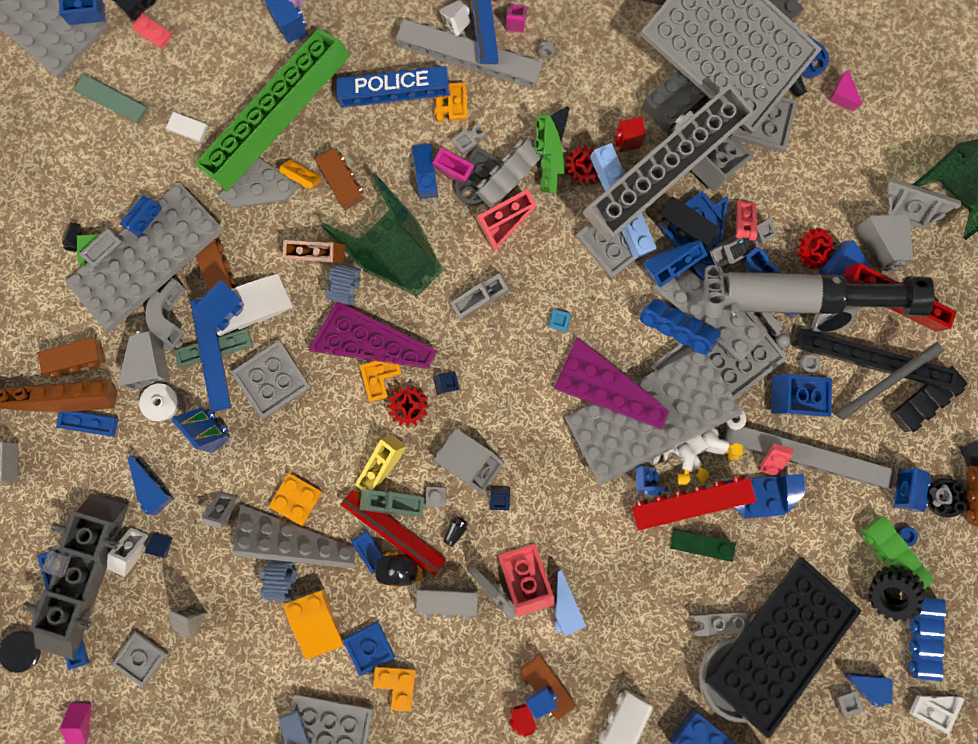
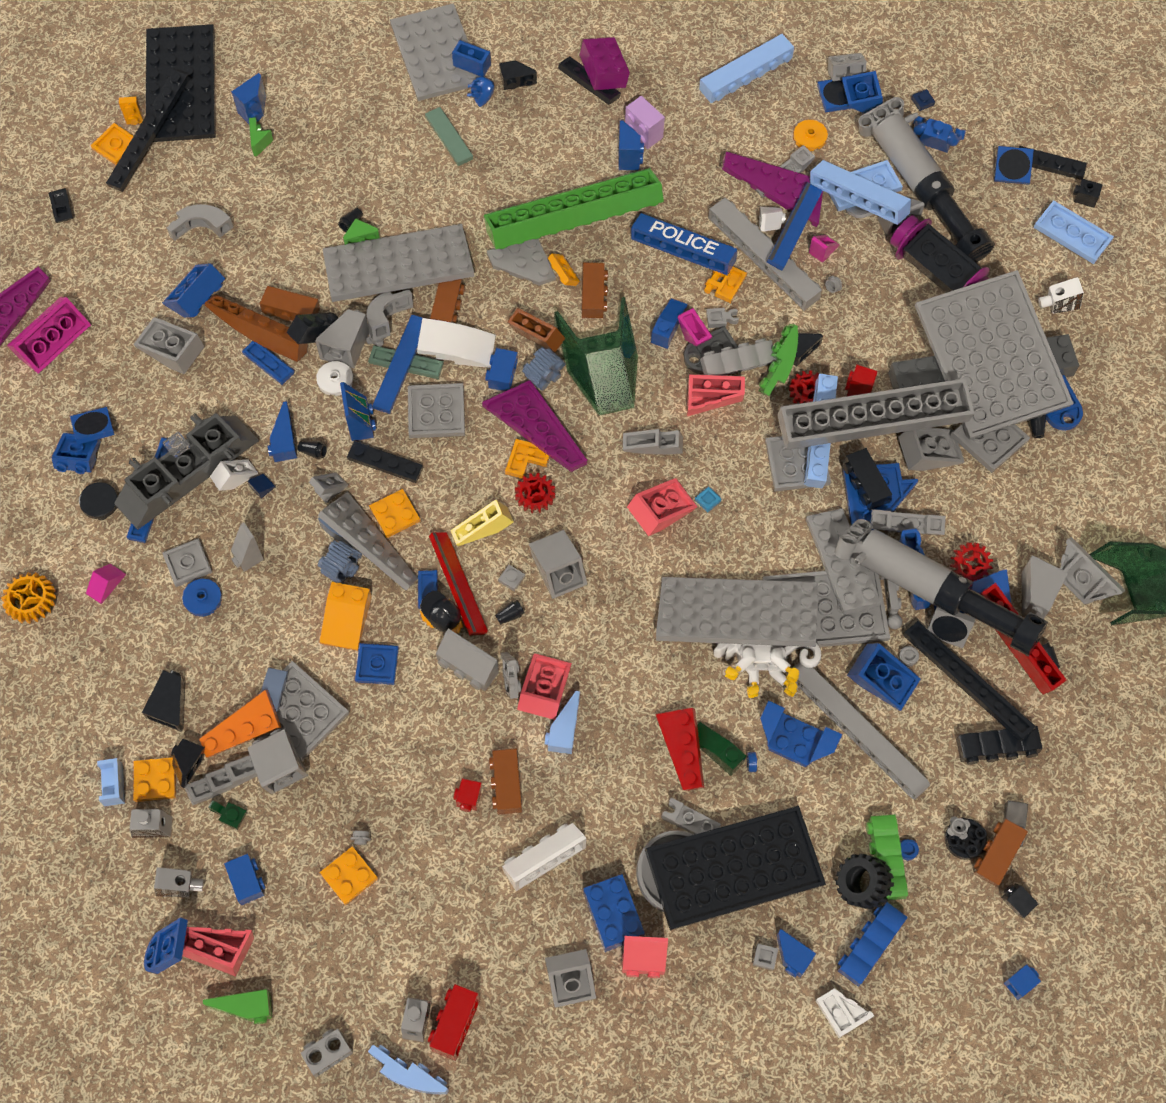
camera: 30 degrees right, 15 degrees down
(101, 248) = (368, 237): light grey tile -> none
(106, 372) = (309, 326): none -> black brick
(112, 34) = (481, 90): none -> blue piece
(141, 215) = (415, 231): blue bracket -> none
(151, 31) = (515, 104): coral plate -> none
(182, 676) = (202, 606): none -> blue plate
(183, 483) = (315, 449): none -> black cone
(187, 127) = (495, 188): white tile -> none
(219, 306) = (432, 325): blue slope -> none
(256, 456) = (385, 462): none -> black plate
(305, 305) = (502, 369): none -> blue brick
(391, 503) = (472, 559): sand green slope -> none
(400, 681) = (385, 705): light orange plate -> none
(446, 383) = (579, 494): dark blue slope -> none
(500, 498) = (564, 610): dark blue slope -> none
(525, 352) = (661, 506): none -> coral slope
(541, 702) = (494, 781): blue brick -> none
(598, 382) = (711, 565): magenta wing -> none
(647, 481) = (701, 663): blue bracket -> none
(672, 558) = (682, 741): none -> red wing
(673, 262) = (834, 503): blue slope -> none
(683, 328) = (808, 555): blue brick -> none
(693, 504) = (729, 702): red brick -> none
(739, 249) = (899, 521): tile -> none
(740, 541) = (751, 762): none -> blue tile
(746, 220) = (921, 504): coral plate -> none
(776, 459) = (825, 711): coral plate -> none
(846, 93) = (1077, 454): dark pink slope -> none
(912, 490) = (937, 809): blue slope -> none
(925, 356) = (1010, 693): dark grey piece -> none

